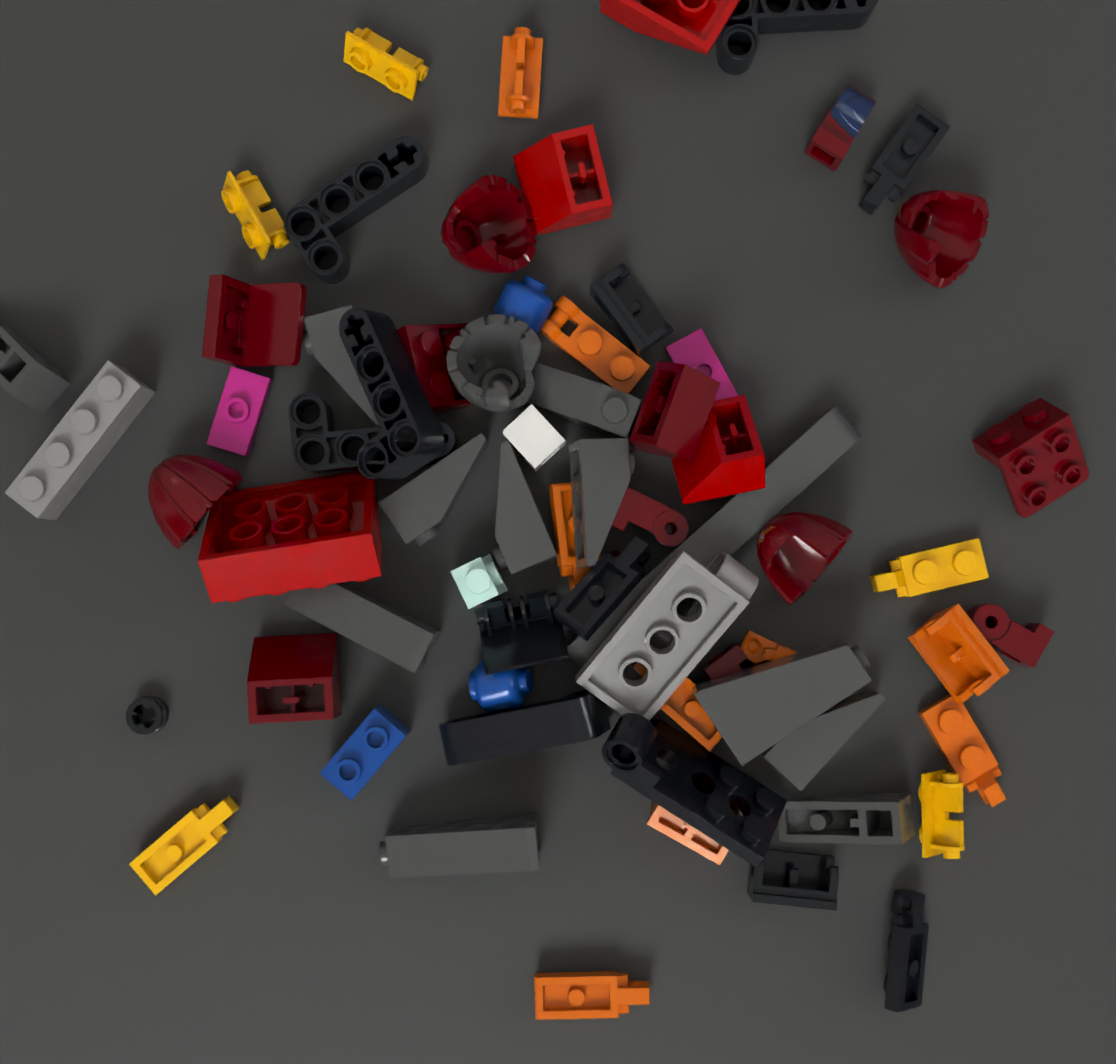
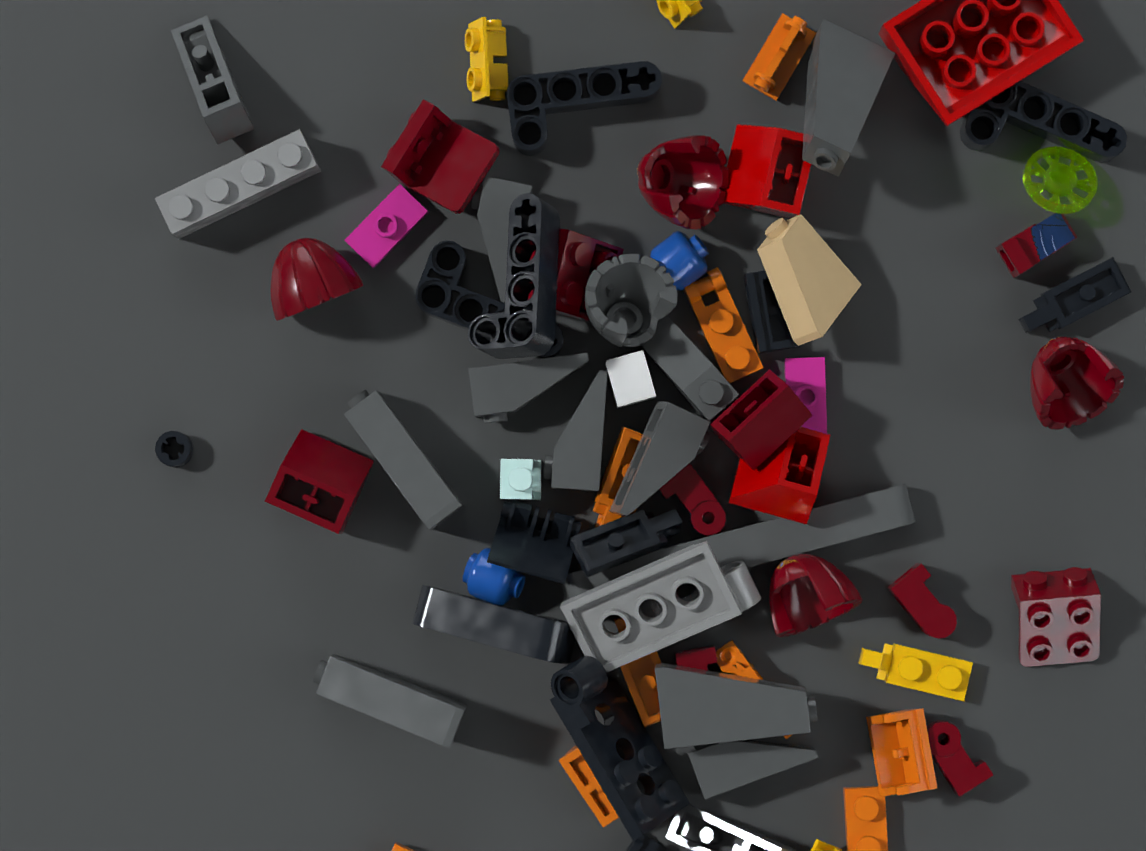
camera: 30 degrees right, 0 degrees up
(183, 845) = (150, 576): yellow hinge -> none
(292, 537) = (382, 360): red slope -> none
(365, 751) = (348, 576): blue brick -> none
(593, 75) = (840, 91): none -> dark grey slope
(647, 261) = (805, 278): none -> tan slope
(833, 58) = (1060, 180): none -> clear neon green wheel
(905, 508) = (921, 605): none -> dark red leg

